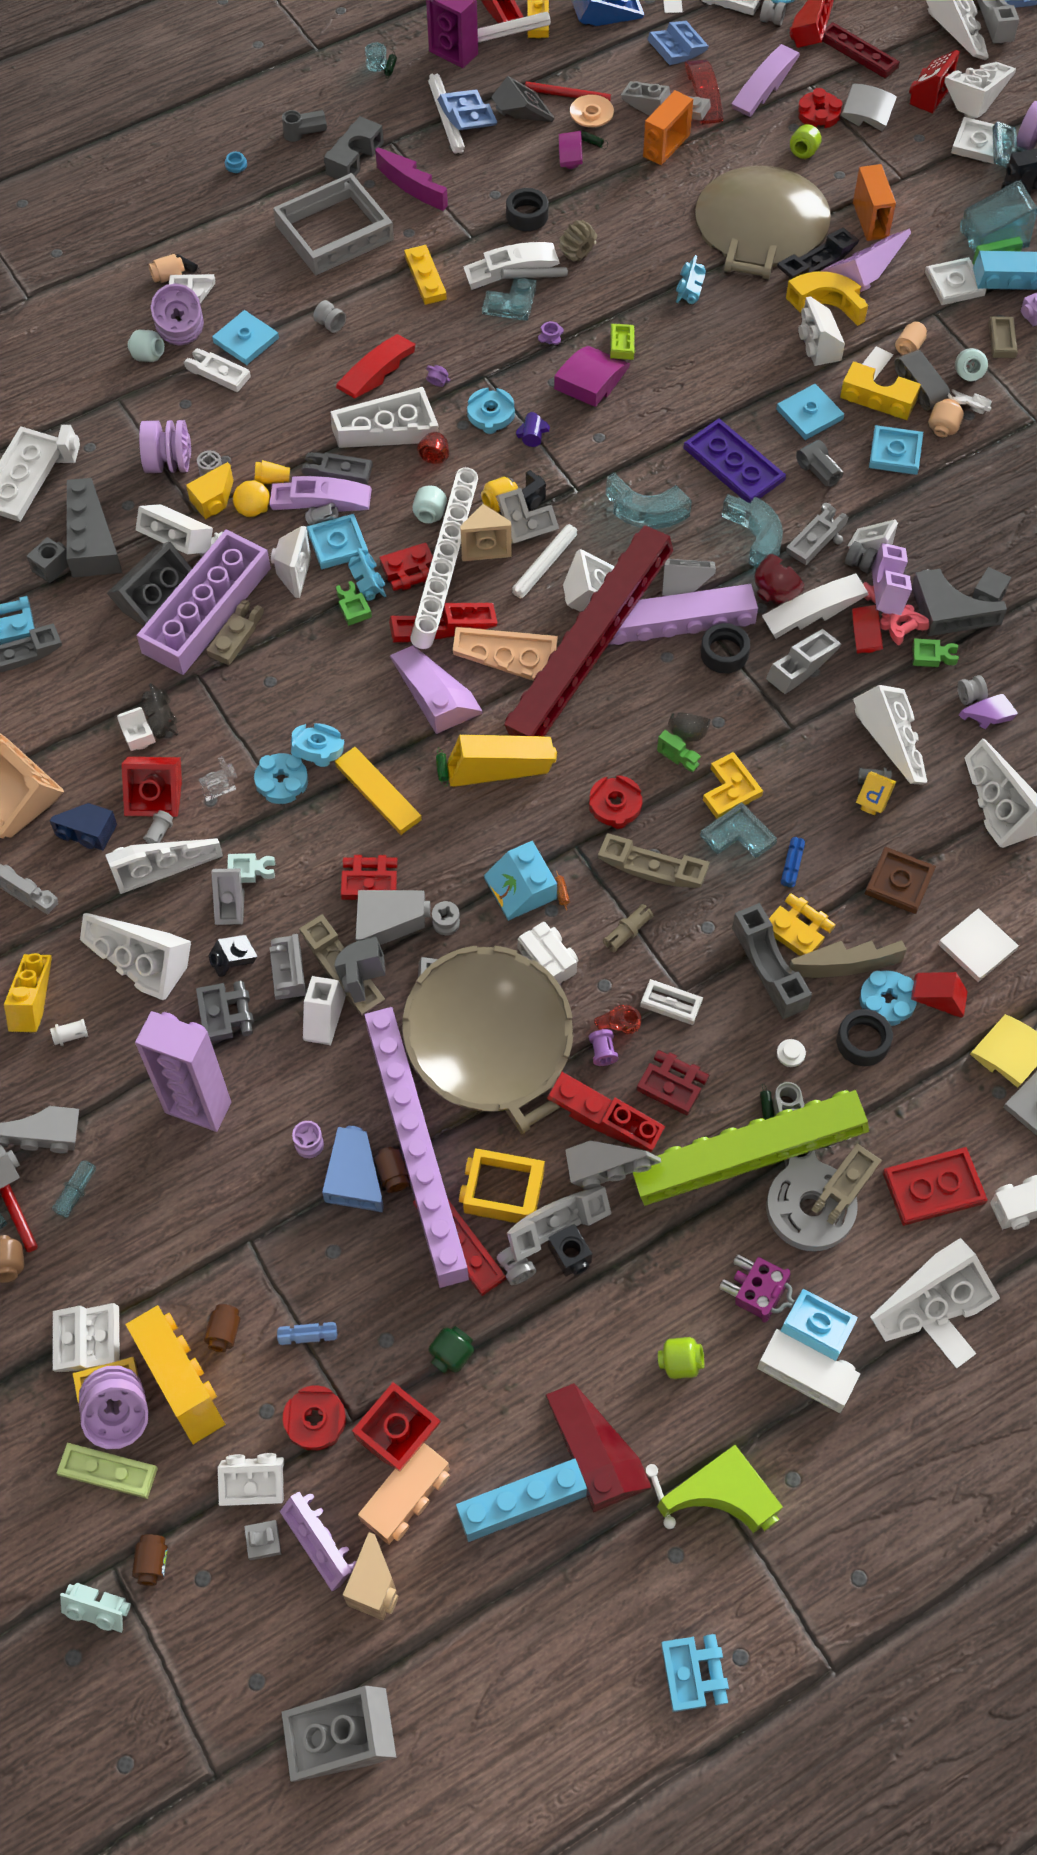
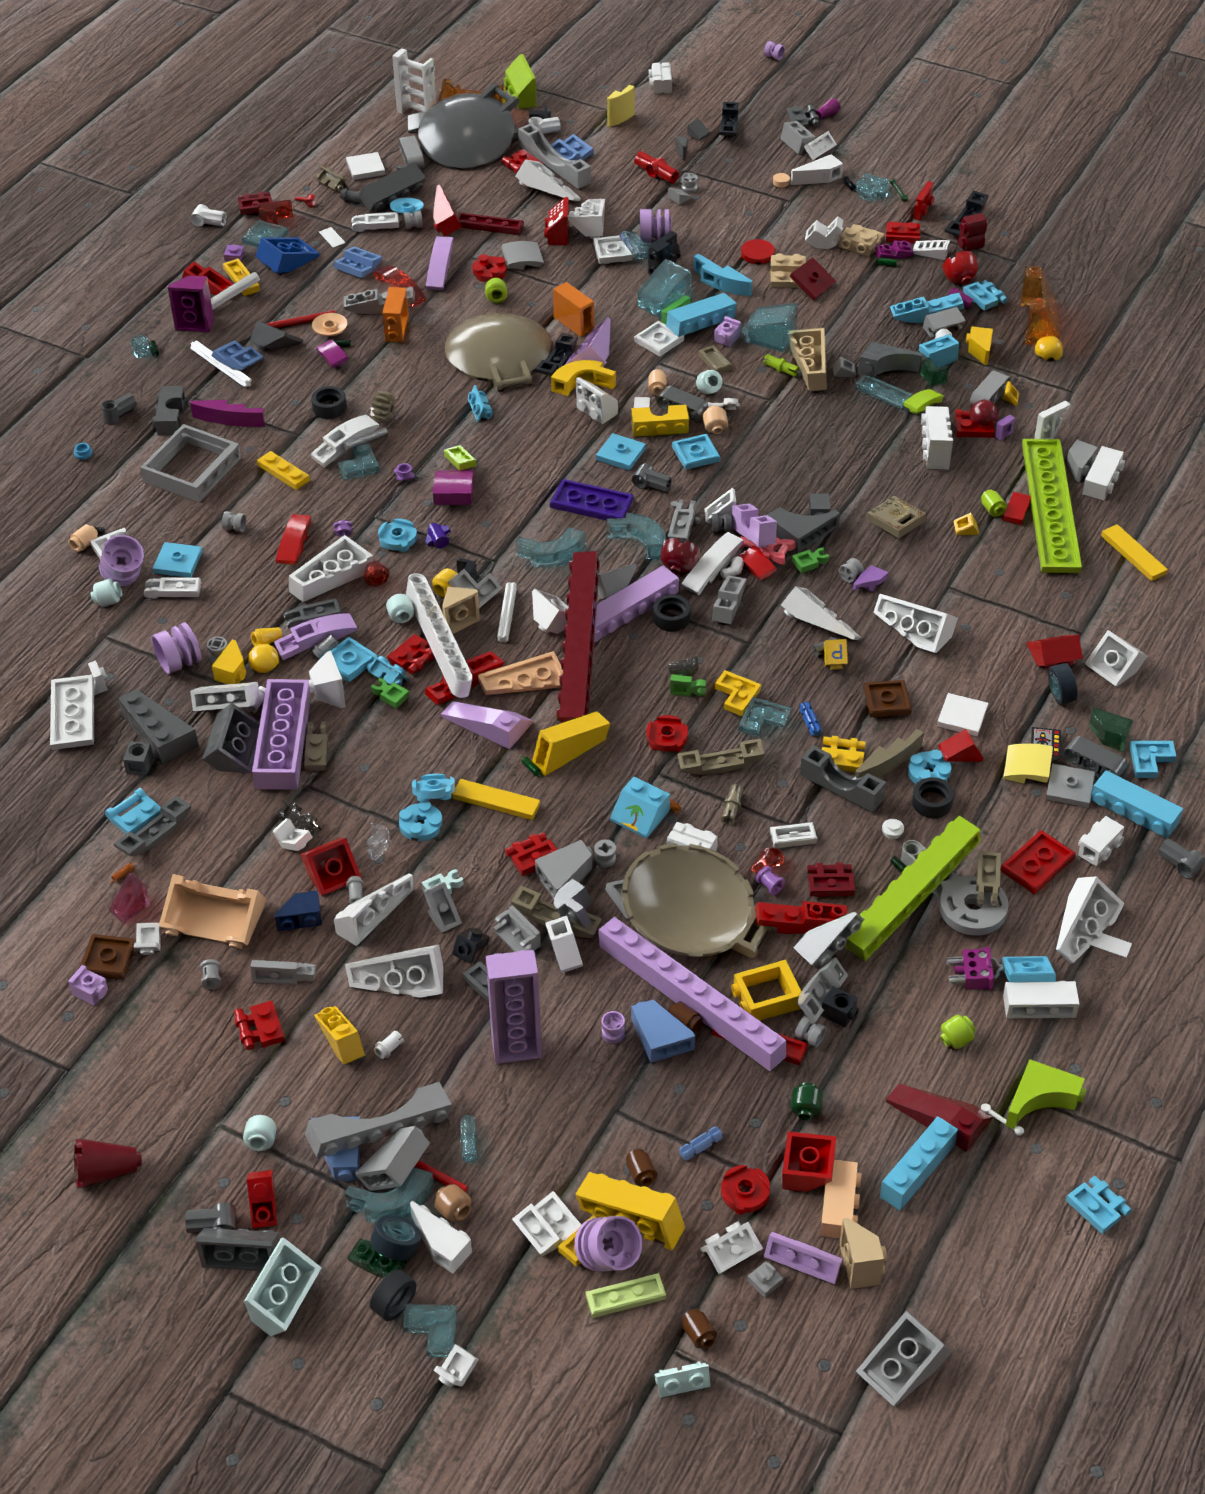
camera: 30 degrees left, 15 degrees down
(839, 623) = (735, 568): none -> white arm

